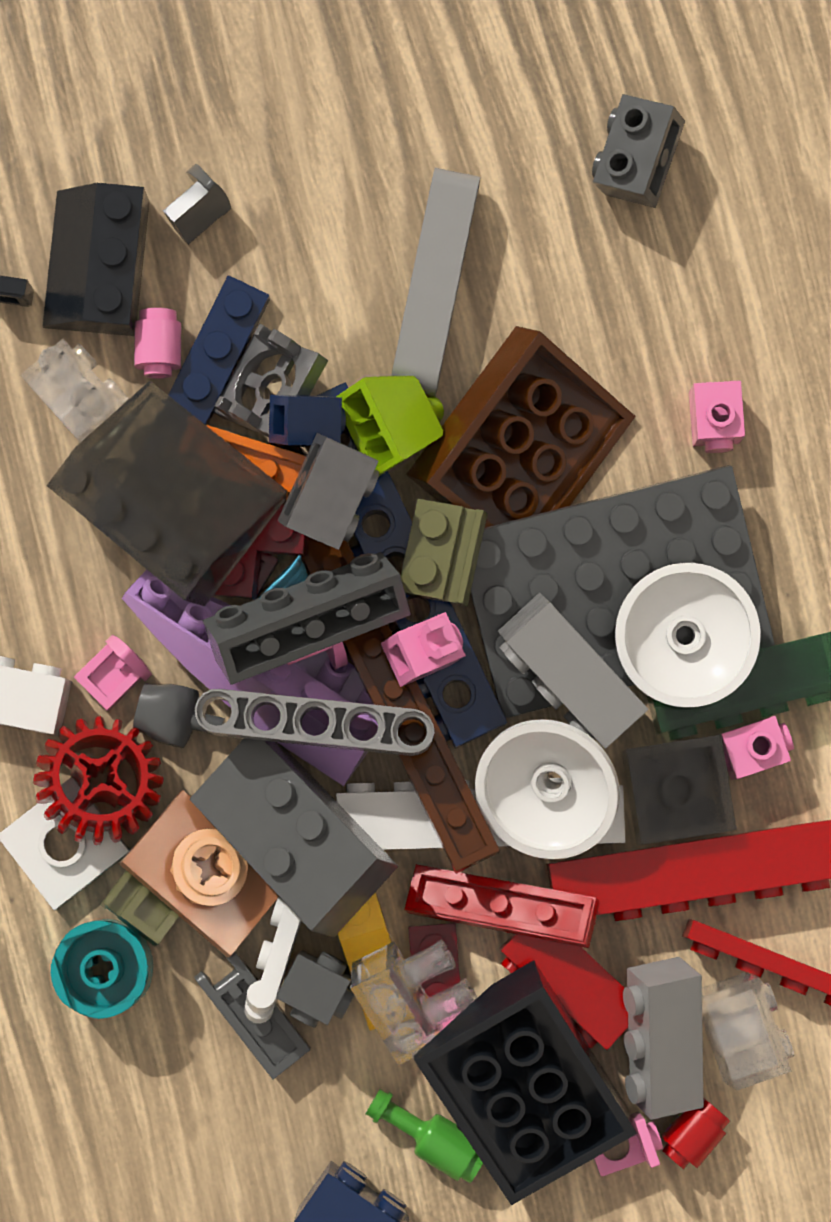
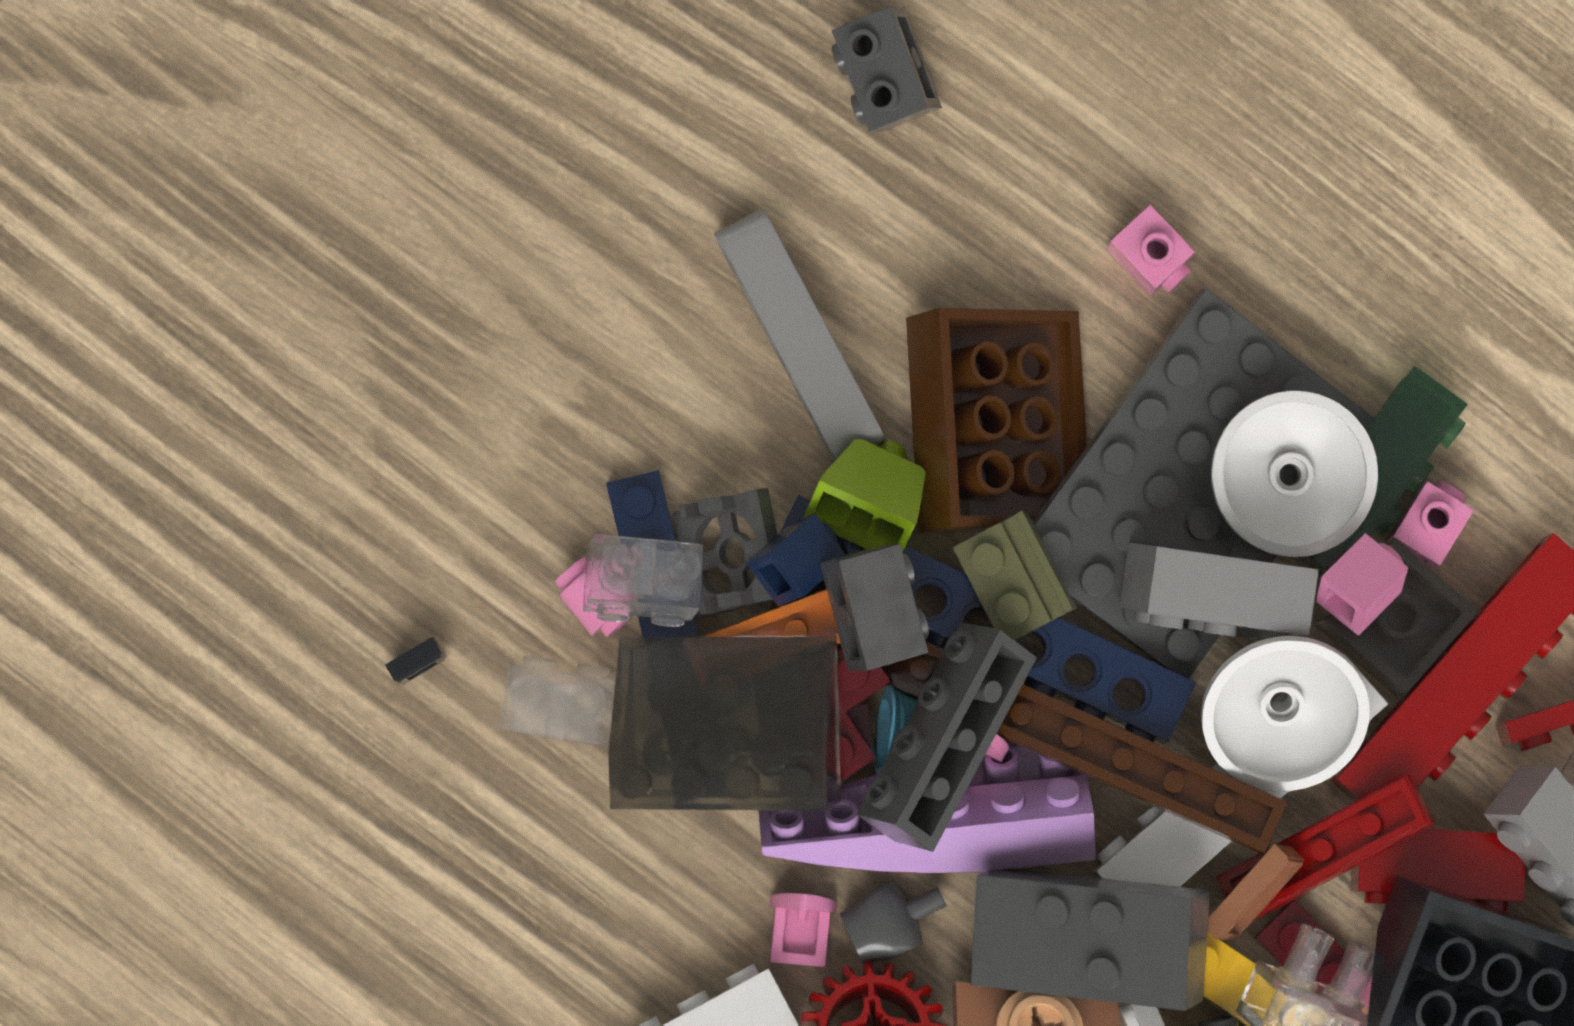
camera: 35 degrees left, 0 degrees up
(96, 259) = (473, 567): black slope -> none
(194, 352) = (642, 579): none -> clear brick
(197, 206) = (528, 441): dark grey tile -> none
(292, 711) = (1058, 812): light grey beam -> none
(424, 649) = (1072, 678): bright pink brick -> none
(429, 893) = (1254, 892): none -> nougat tile
(671, 744) = (1362, 583): none -> bright pink brick

